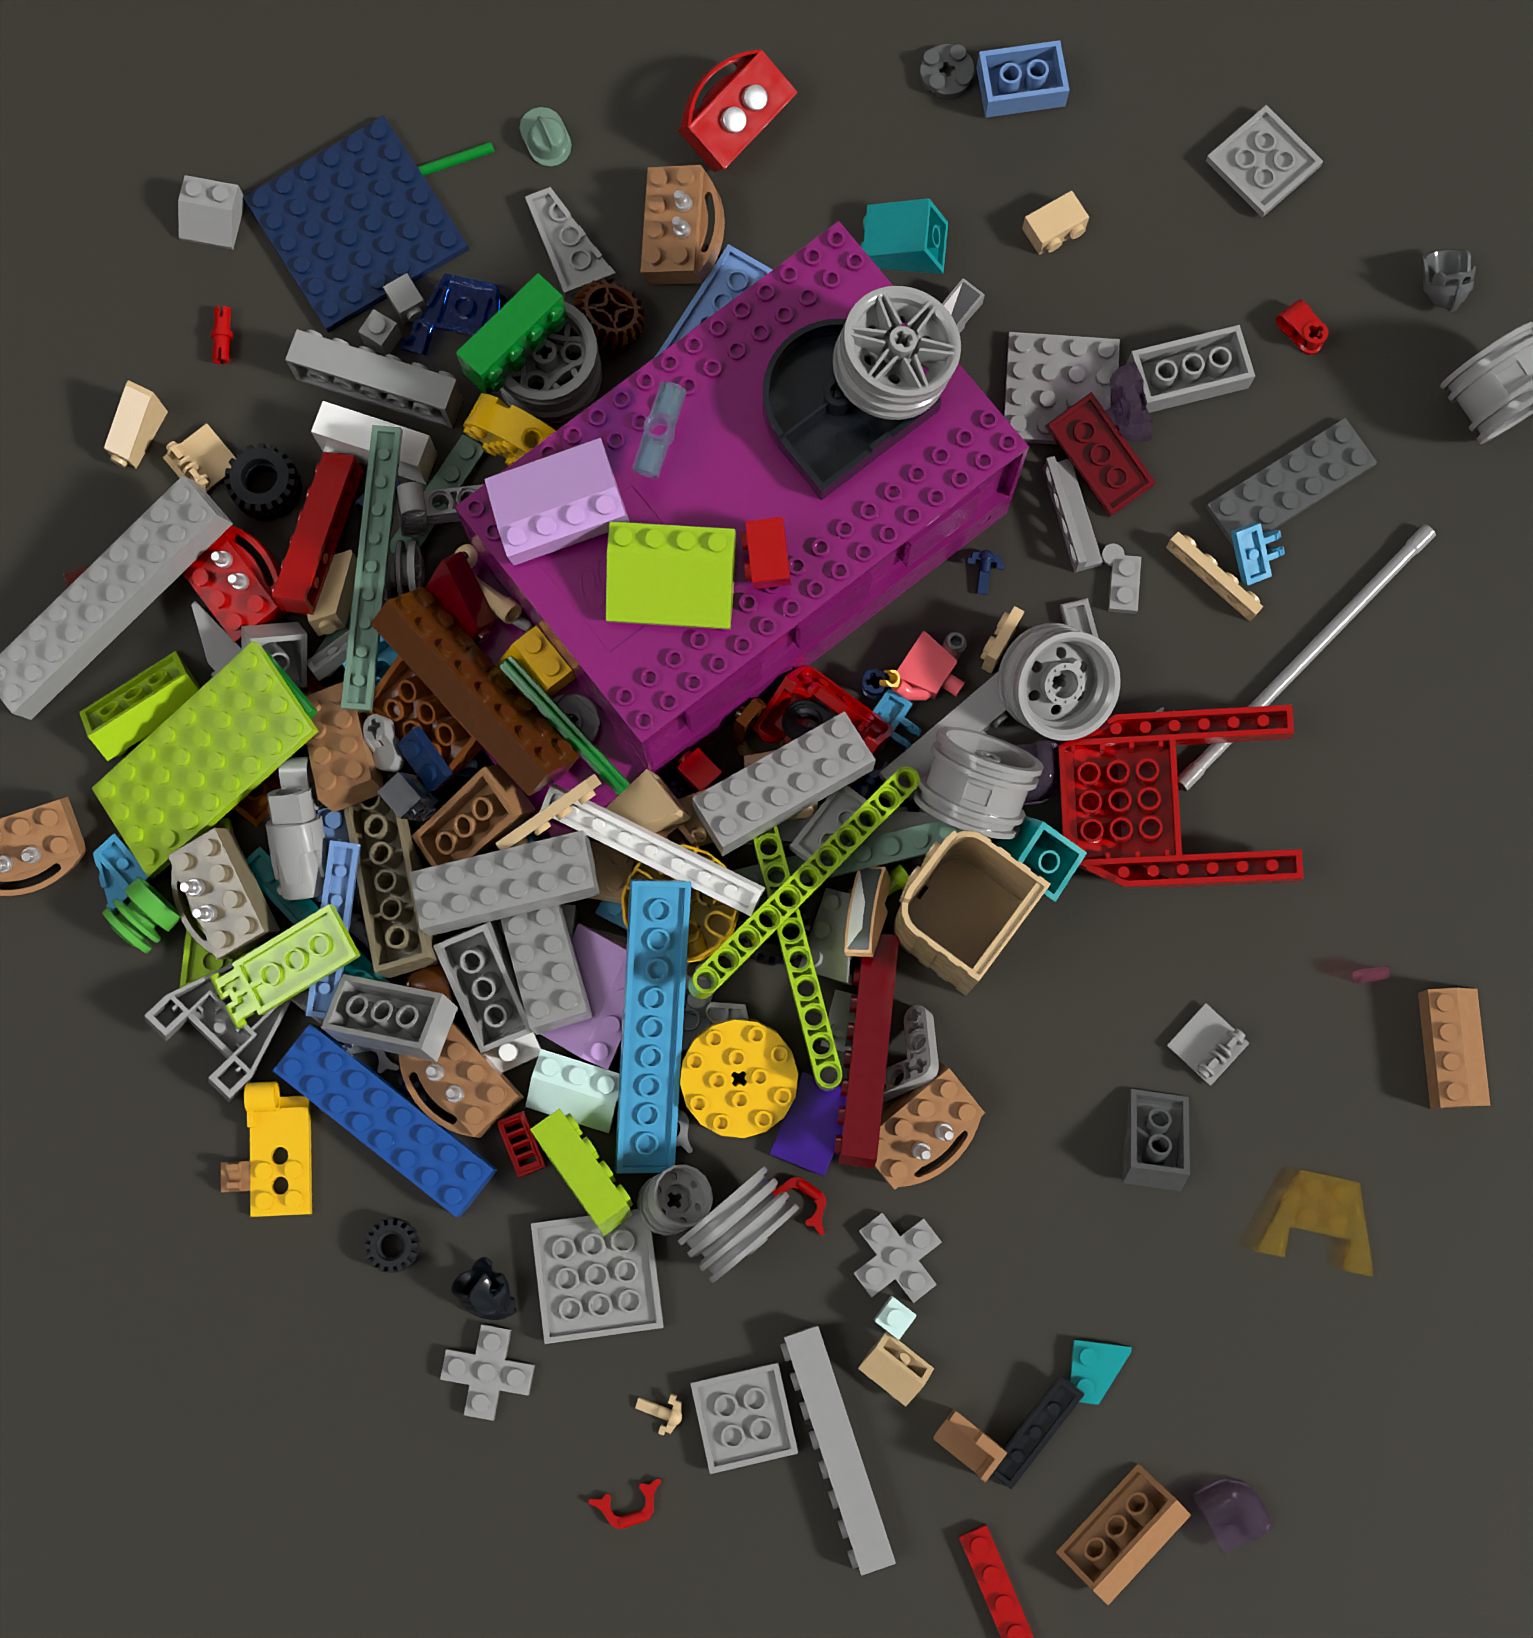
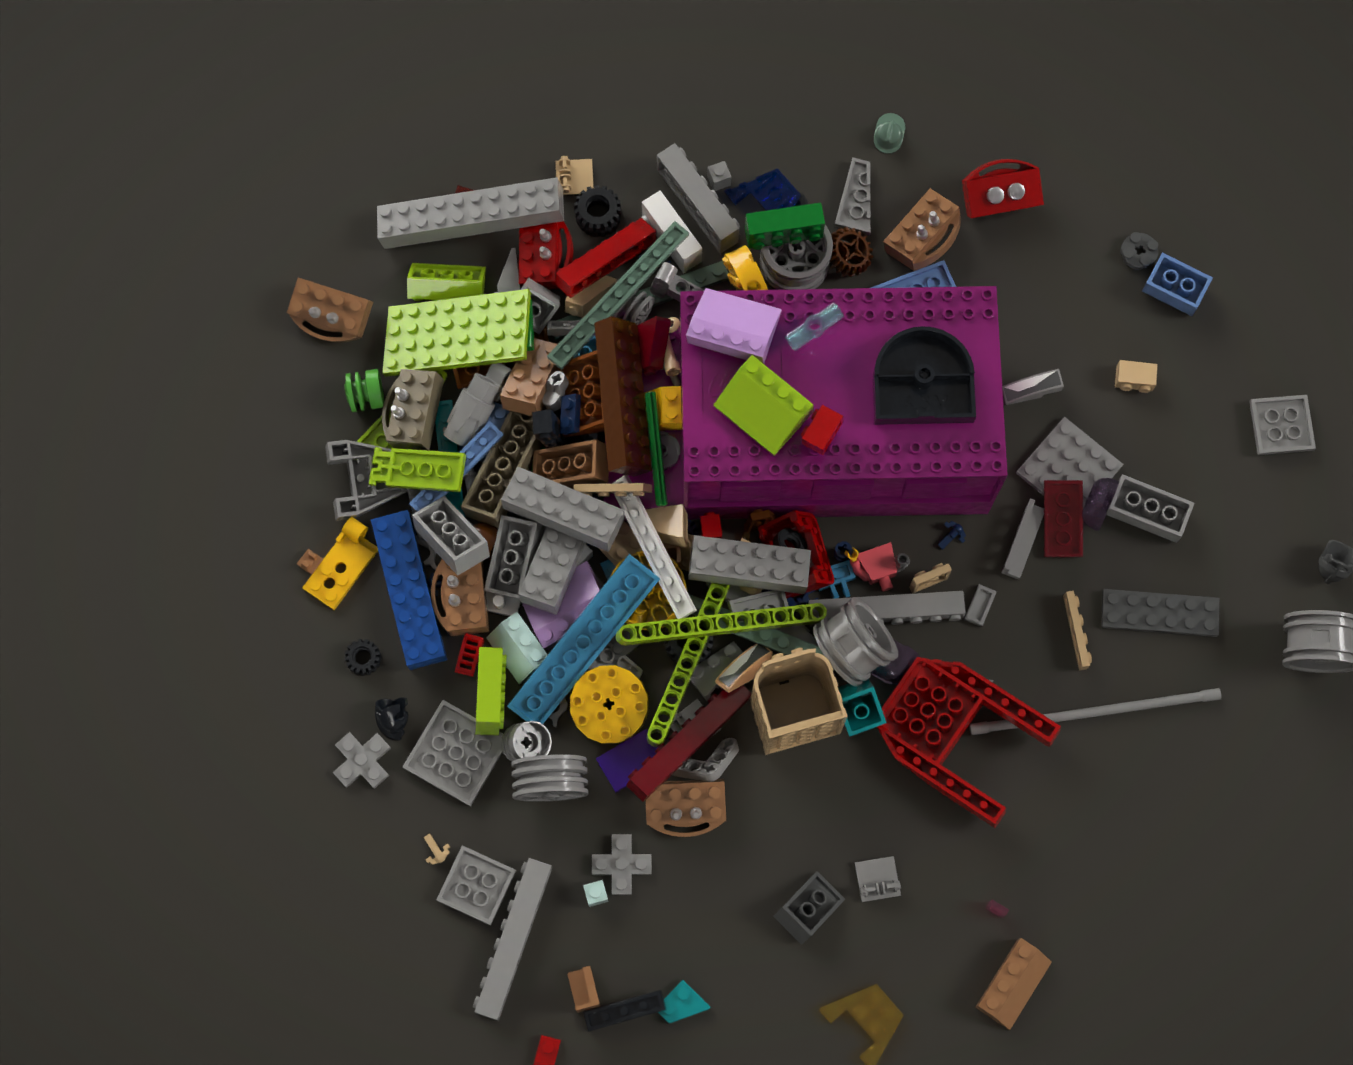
camera: 35 degrees right, 5 degrees down
(117, 869) = (370, 357): dark azure wing -> none
(134, 425) = (552, 133): tan slope -> none
(209, 212) = (677, 49): light grey slope -> none
(221, 335) = (634, 118): red pin -> none
(355, 222) = (751, 108): dark blue plate -> none
(405, 298) = (746, 167): light grey brick -> none
(456, 158) = (820, 108): green bar -> none
(633, 1518) = (379, 893): red helmet -> none
(812, 1192) = (603, 799): red helmet -> none
(896, 352) = (961, 401): light grey wheel -> none
(896, 1368) = (575, 919): tan brick -> none
(906, 236) = (1045, 324): teal slope -> none
(1074, 717) = (964, 636): light grey wheel -> none
(1123, 579) = (1025, 595): light grey hinge -> none
(1252, 553) = (1107, 631): dark azure hinge -> none
(1303, 326) = (1233, 528): red piece -> none

